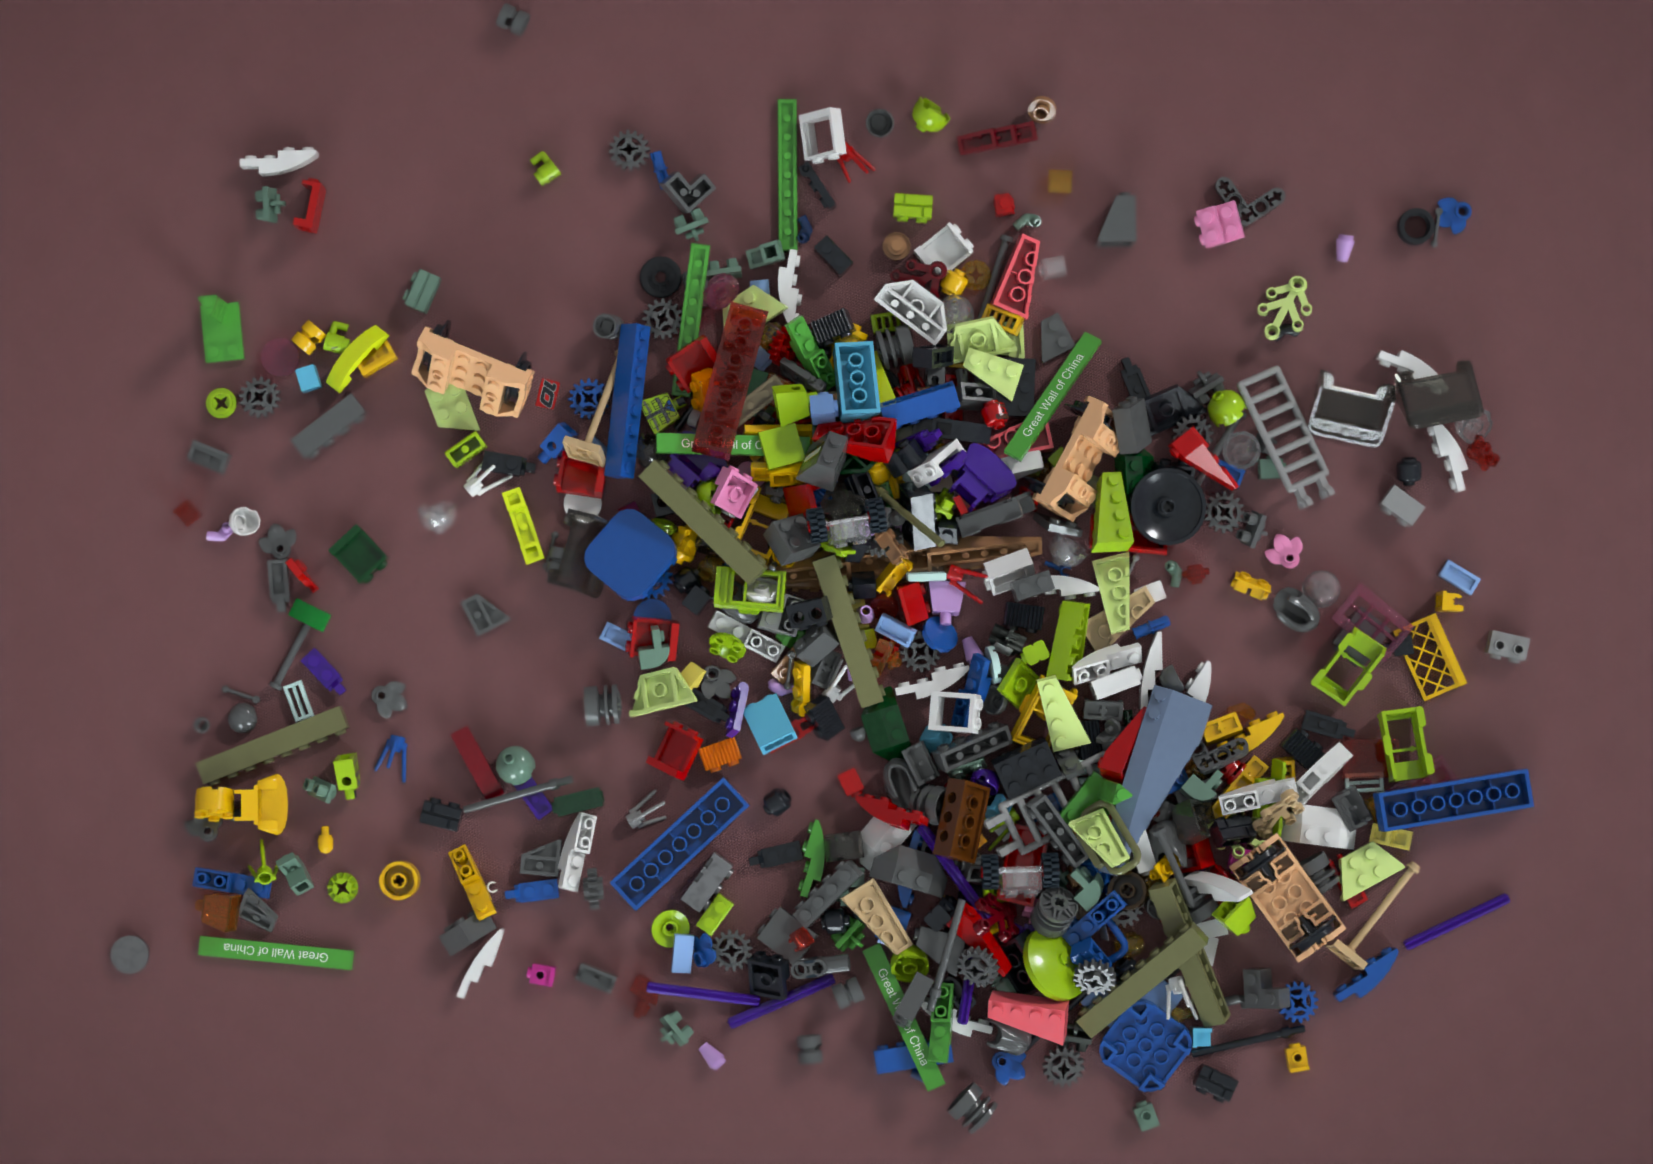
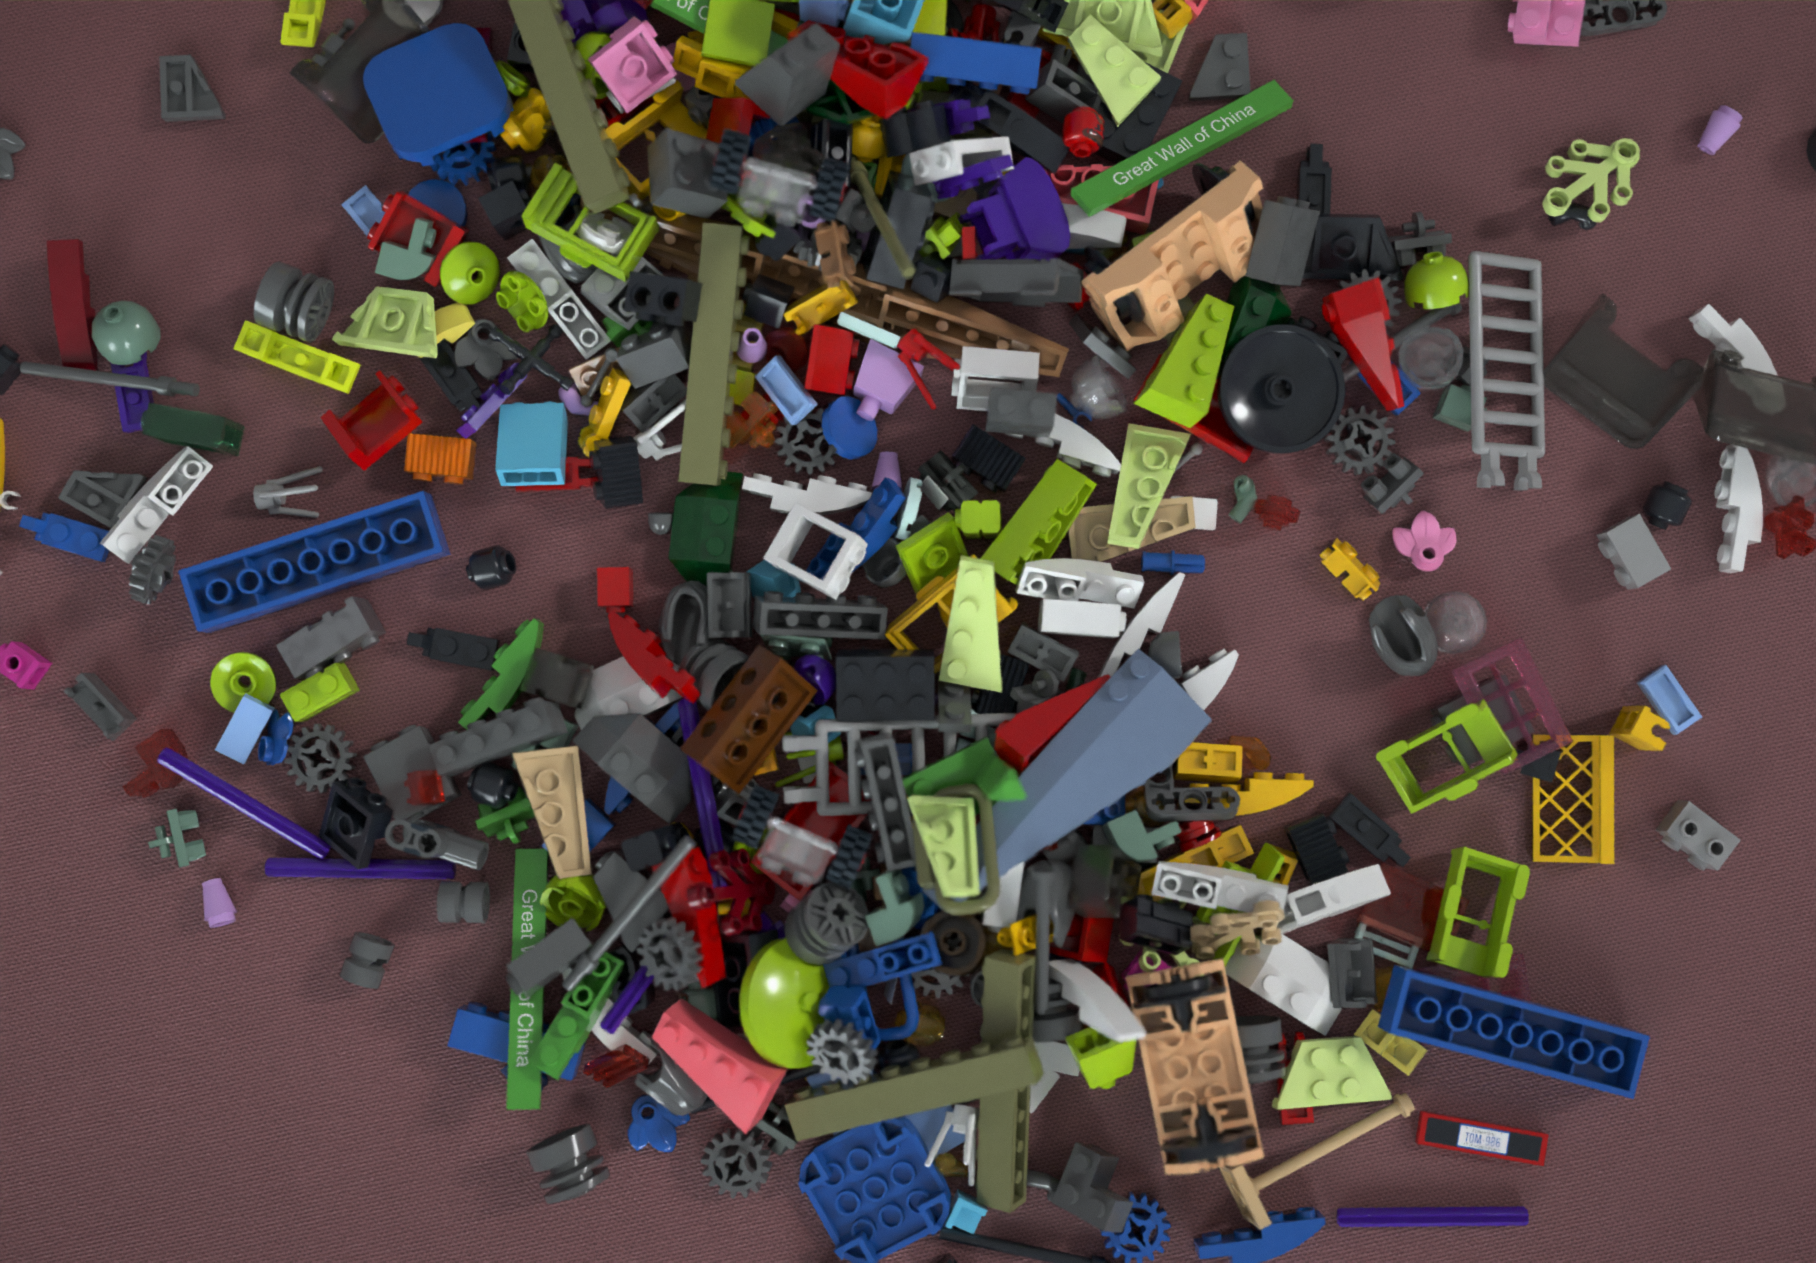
camera: 25 degrees right, 0 degrees up
(616, 734) = (297, 357): none -> neon yellow slope
(690, 644) = (458, 269): none -> lime dish
(747, 676) = (531, 359): none -> black piece
(976, 1043) = (620, 1069): none -> clear red tile
(1464, 866) = (1481, 1138): none -> tile

